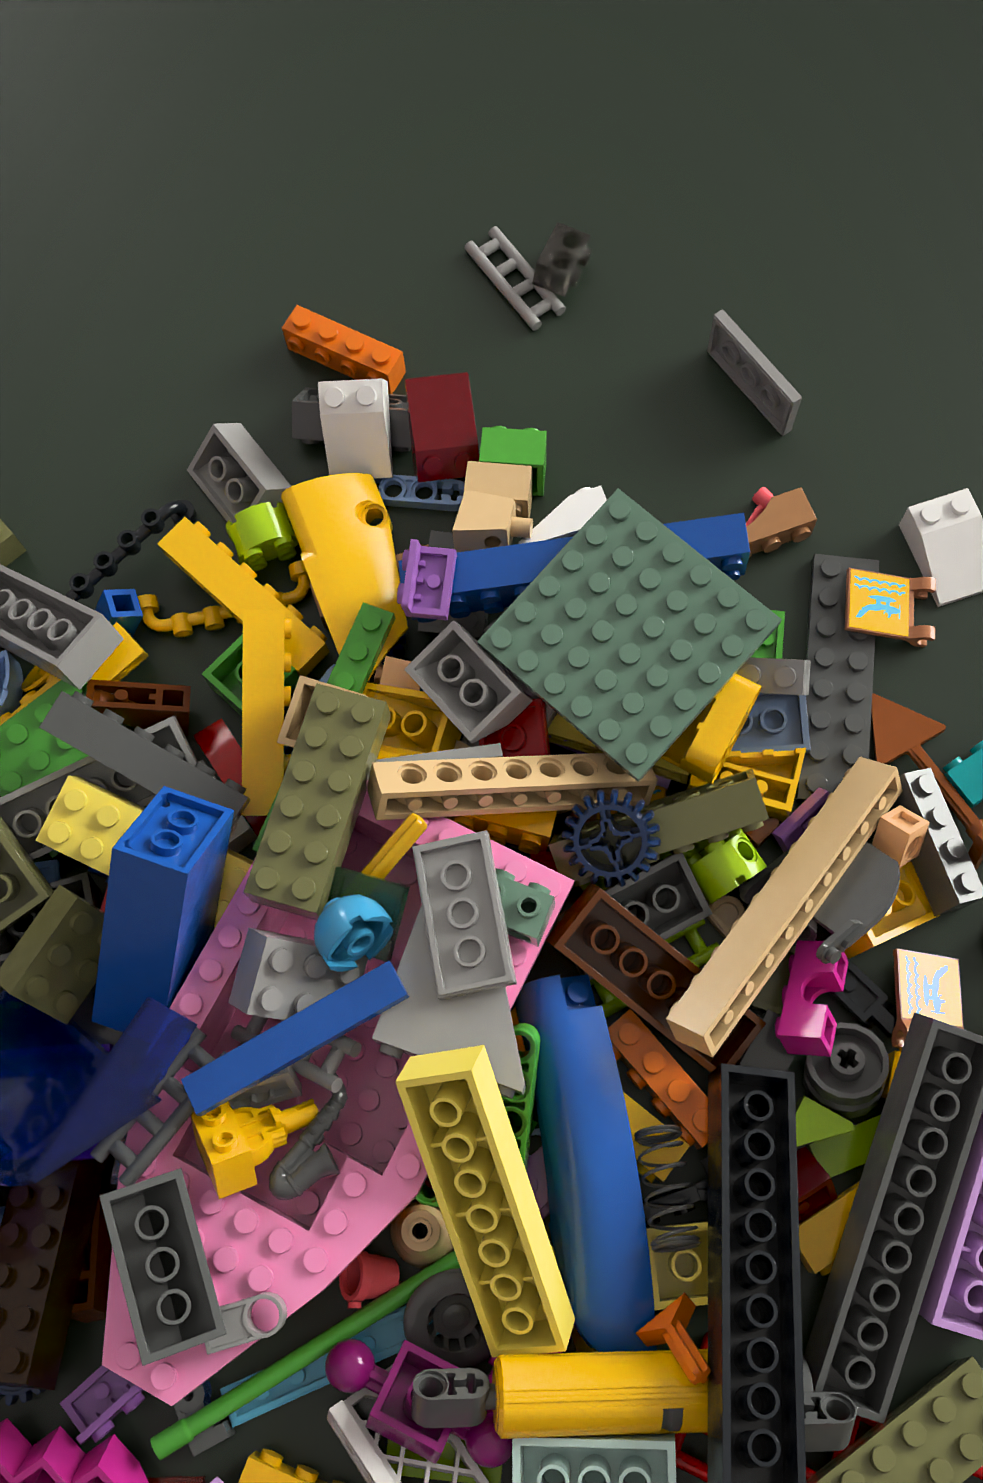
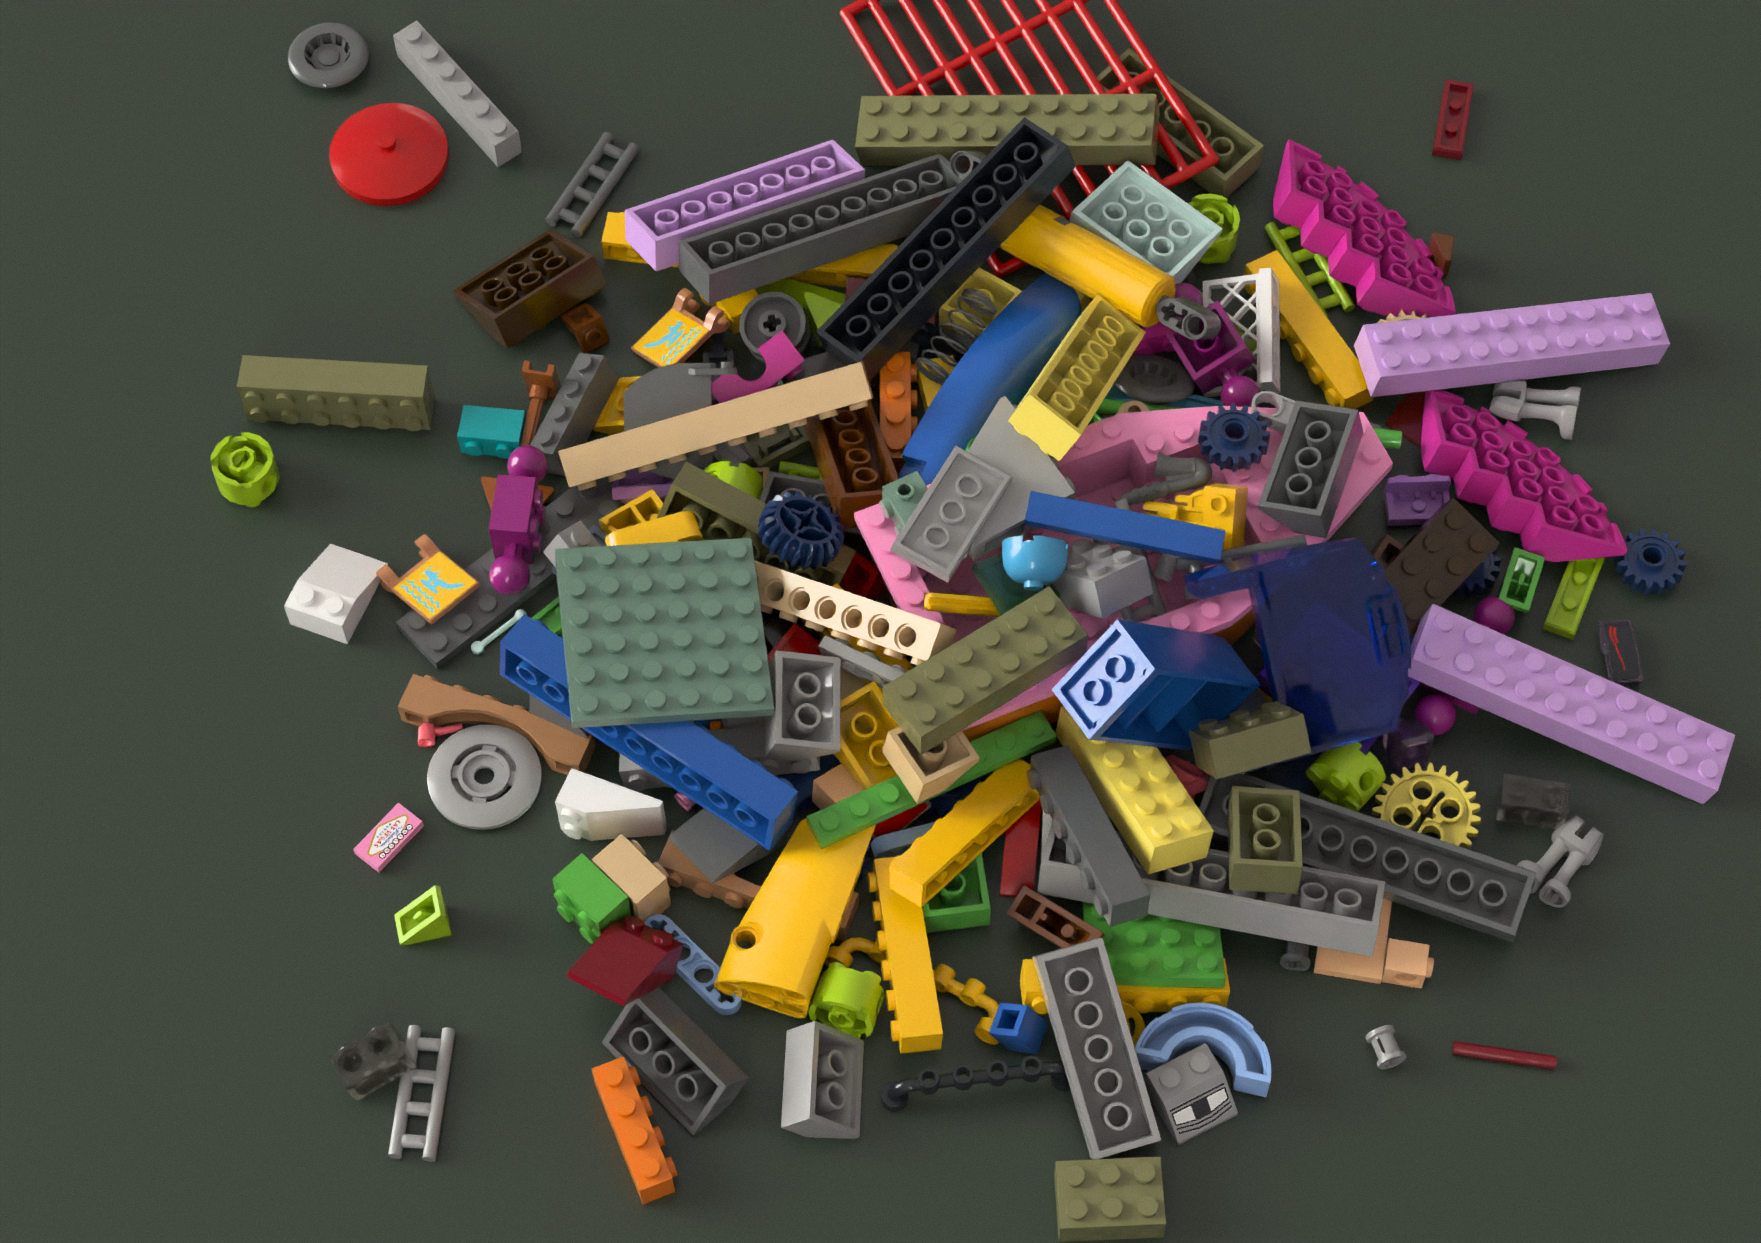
camera: 145 degrees left, 10 degrees down
(248, 1244) = (1230, 453): none -> dark blue gear
(356, 426) = (690, 1018): white slope -> none
(427, 581) = (769, 774): medium lavender bracket -> none
(488, 522) = (671, 834): tan torso -> none
(623, 376) = (423, 918): none -> lime slope
(670, 1328) = (1022, 270): orange piece -> none
(693, 477) = (464, 799): none -> light grey piece
(712, 411) = (388, 837): none -> tile
(753, 373) = (334, 824): light grey tile -> none
(799, 597) = (478, 646): none -> light aqua hinge
(869, 690) = (516, 520): none -> magenta brick
(900, 834) = (595, 422): light nougat brick -> none

